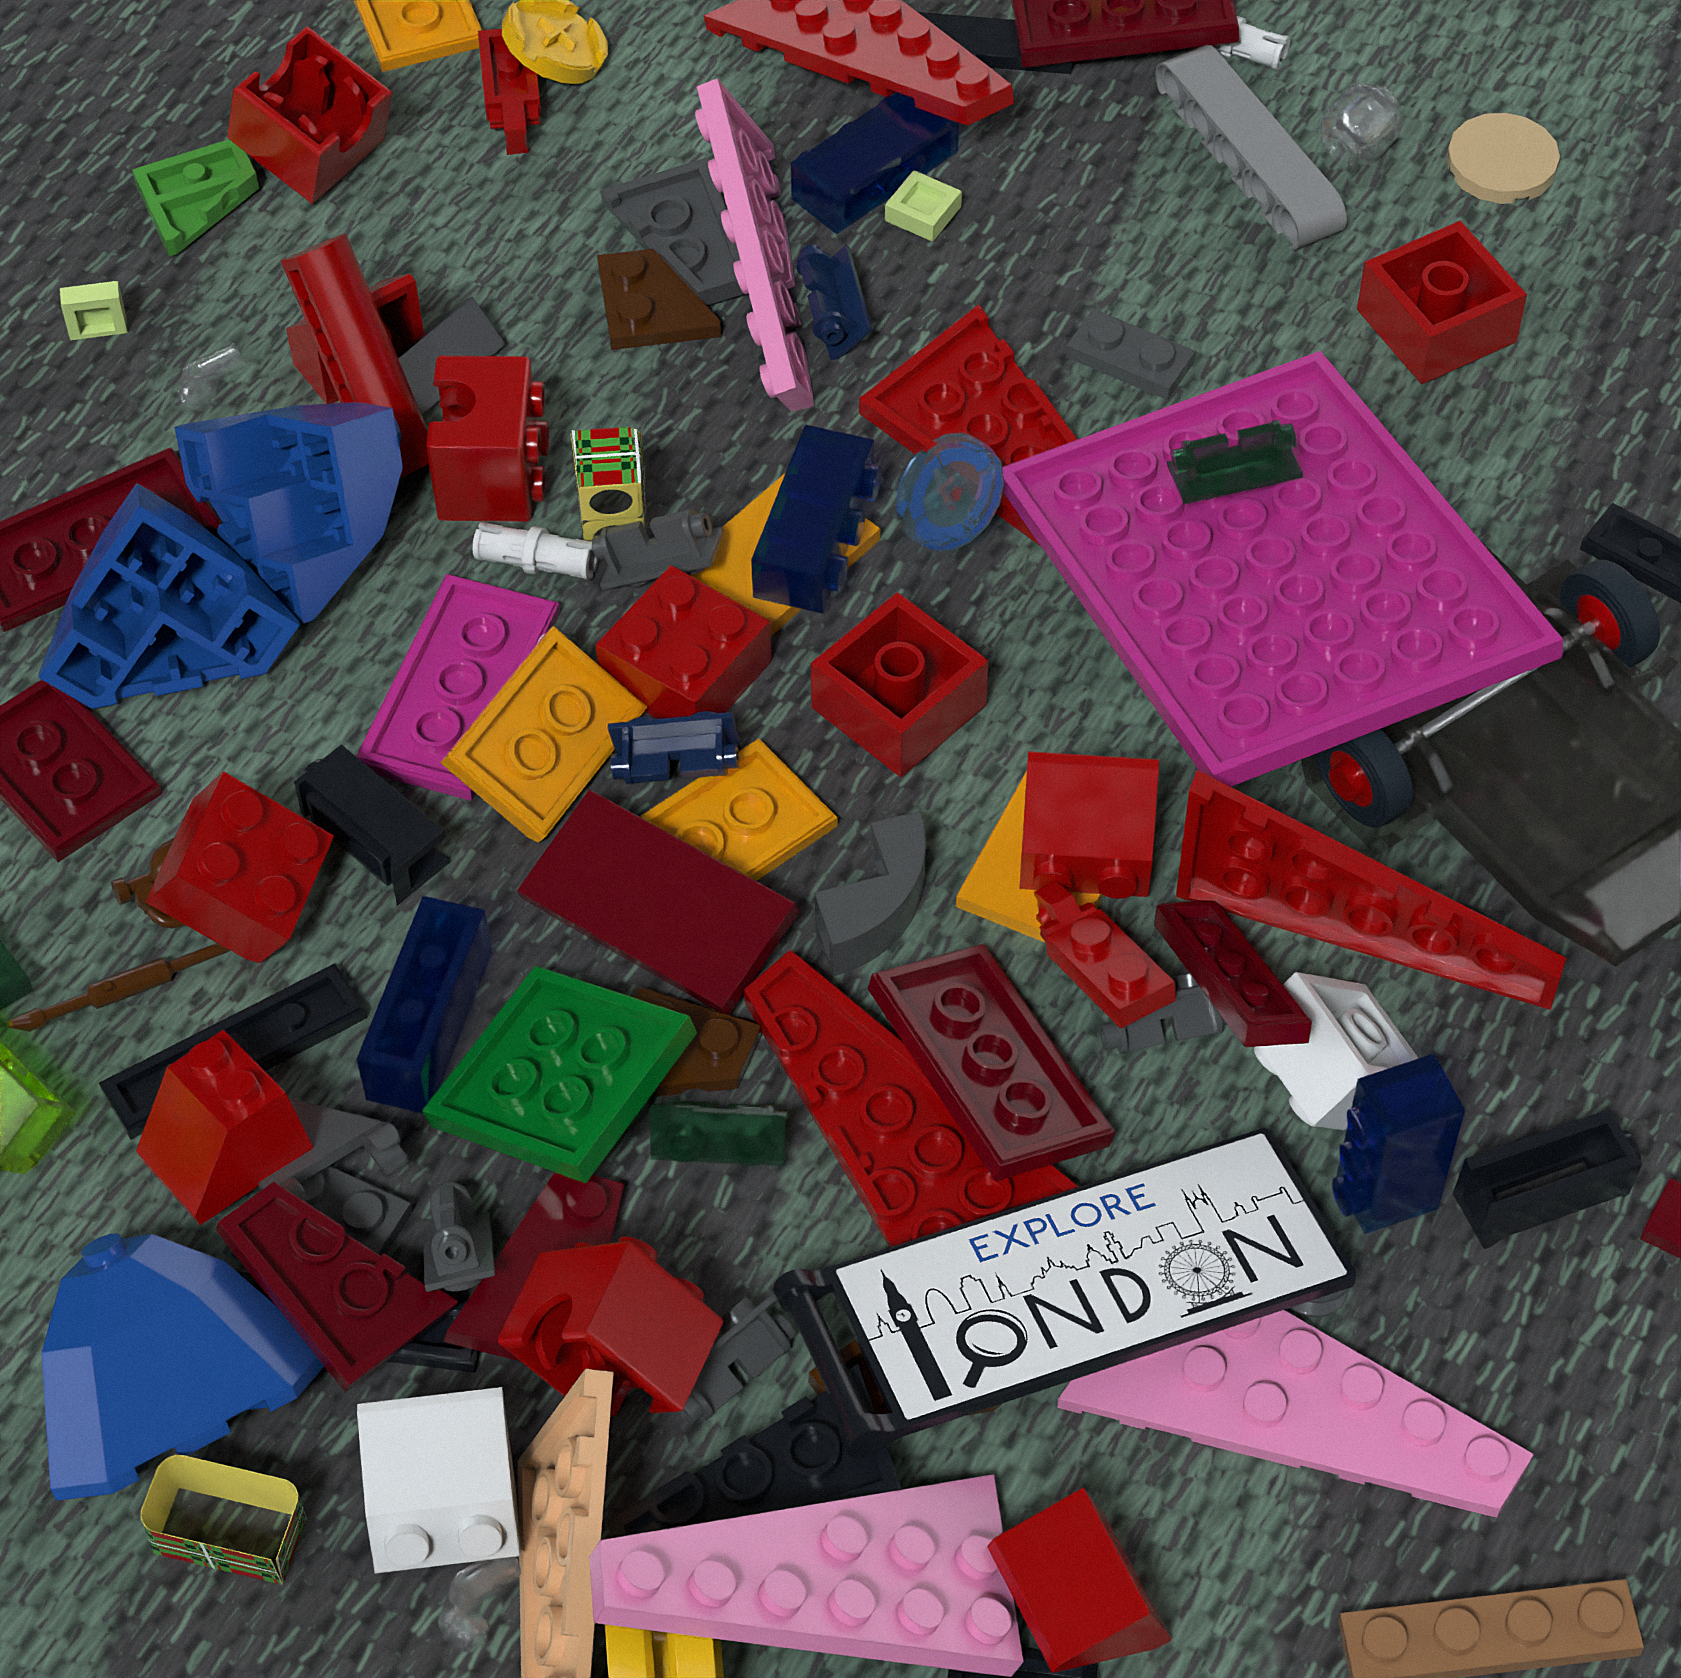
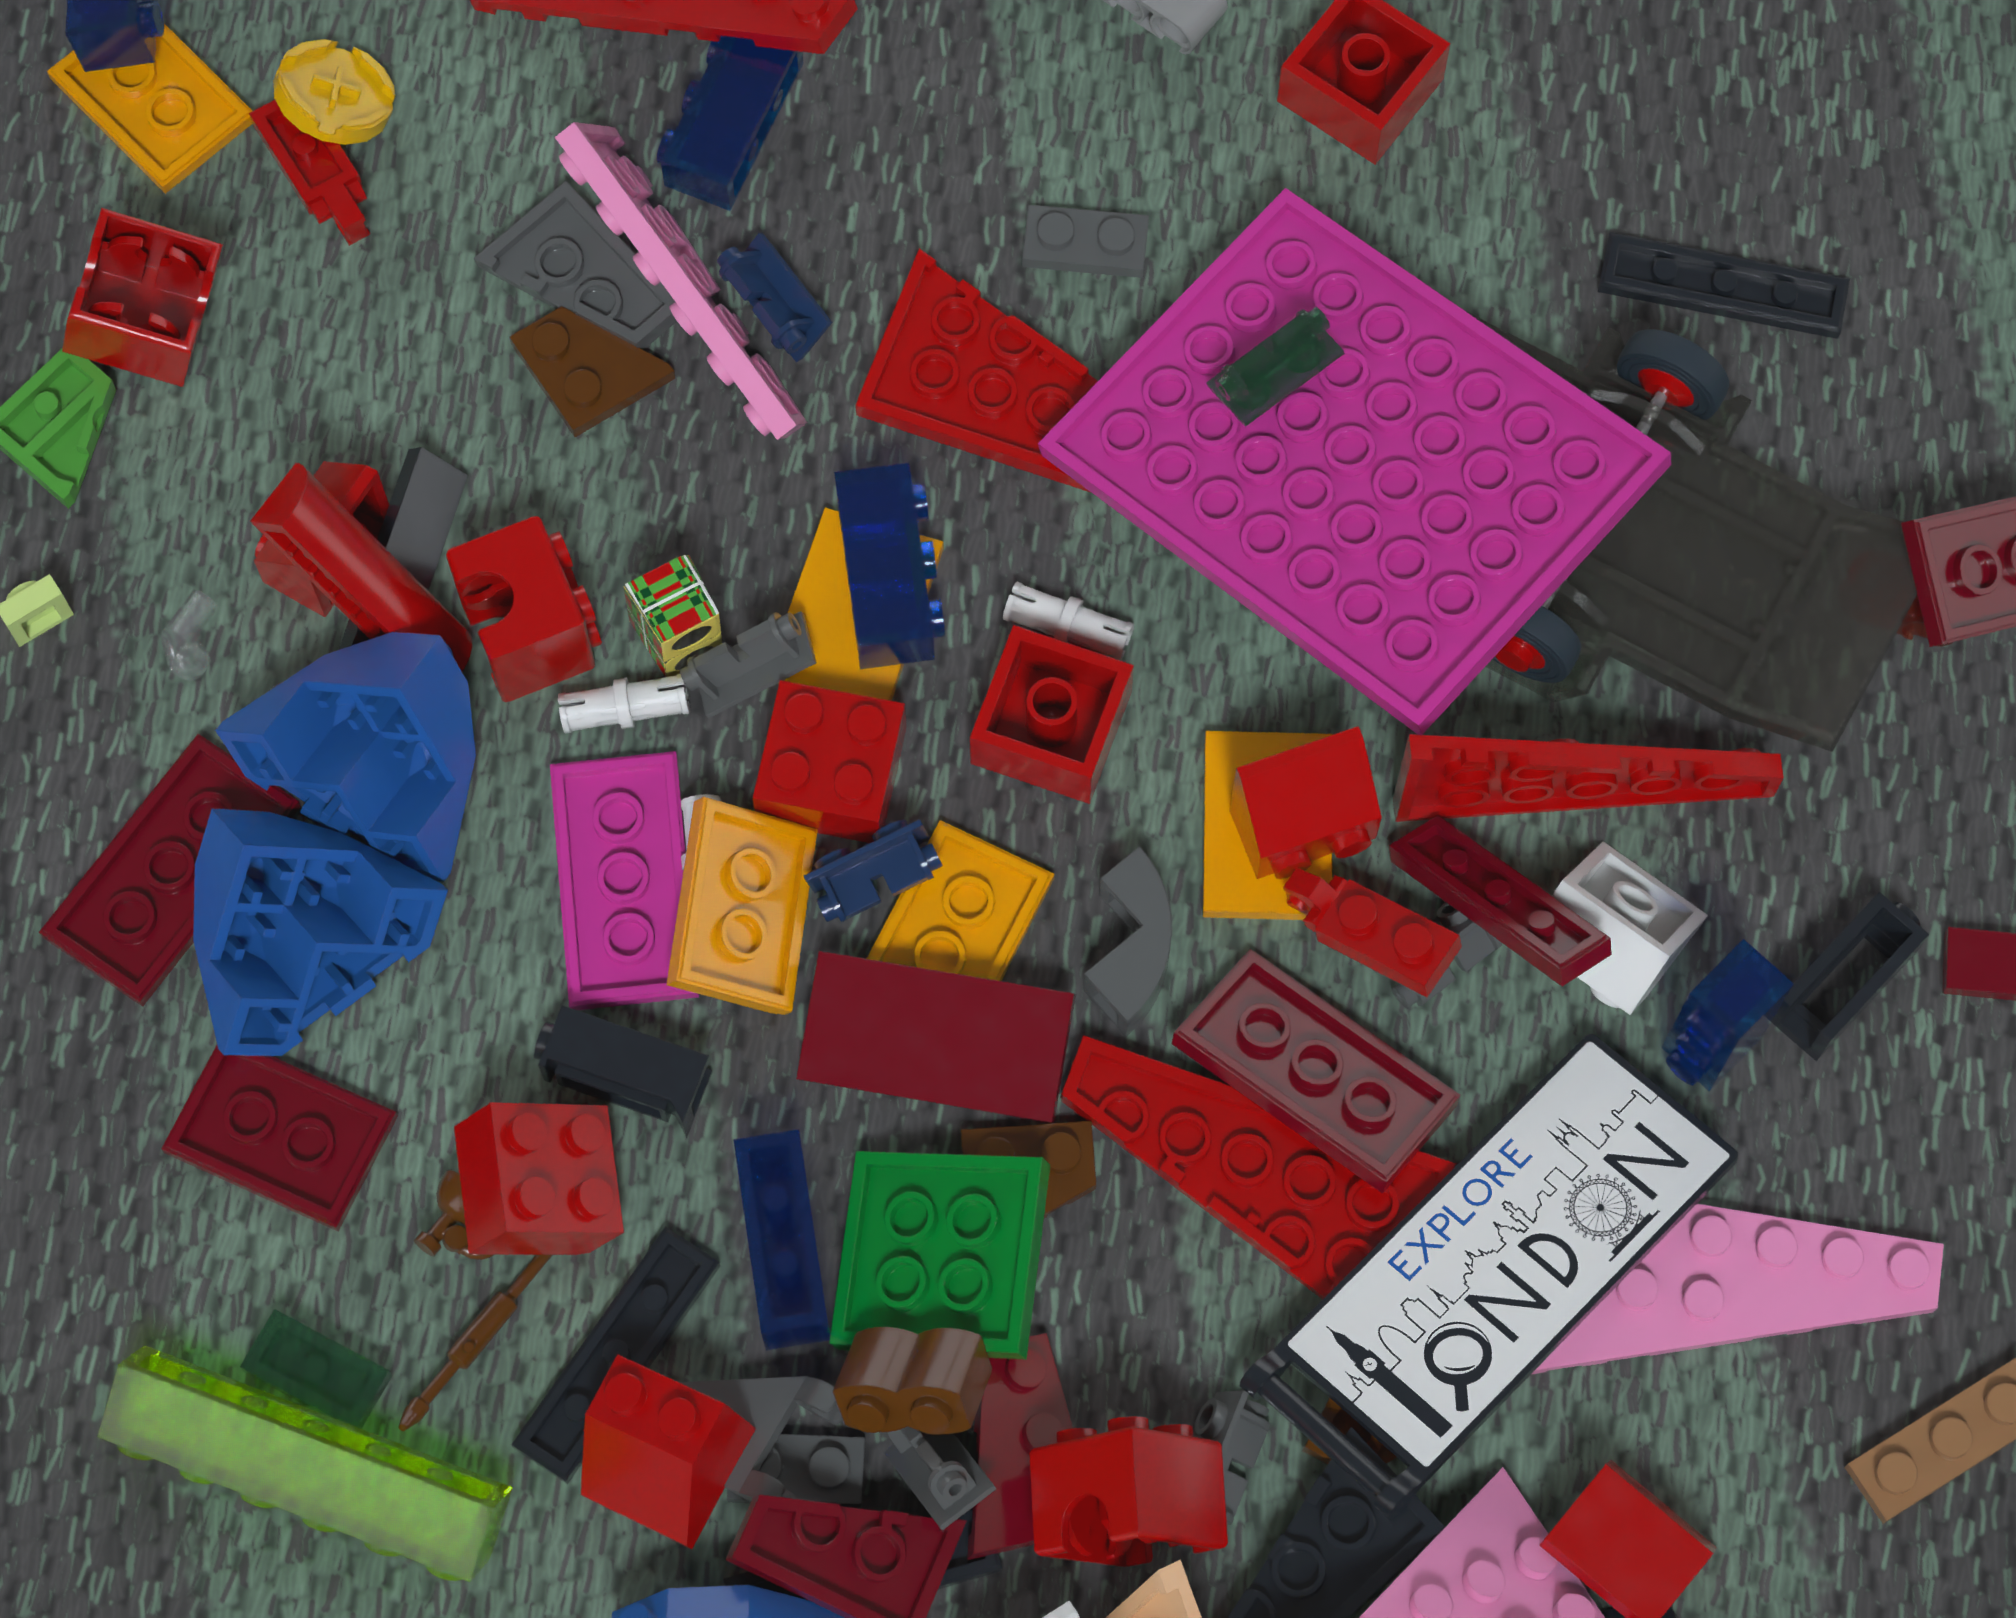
camera: 25 degrees left, 15 degrees up
(471, 1155) = (913, 1380): none -> reddish brown brick
(711, 1135) = (1133, 1235): clear green hinge -> none
(923, 205) = (805, 148): yellowish green plate -> none
(950, 492) = (997, 480): clear light blue tile -> none
(963, 623) = (1068, 621): none -> white pin

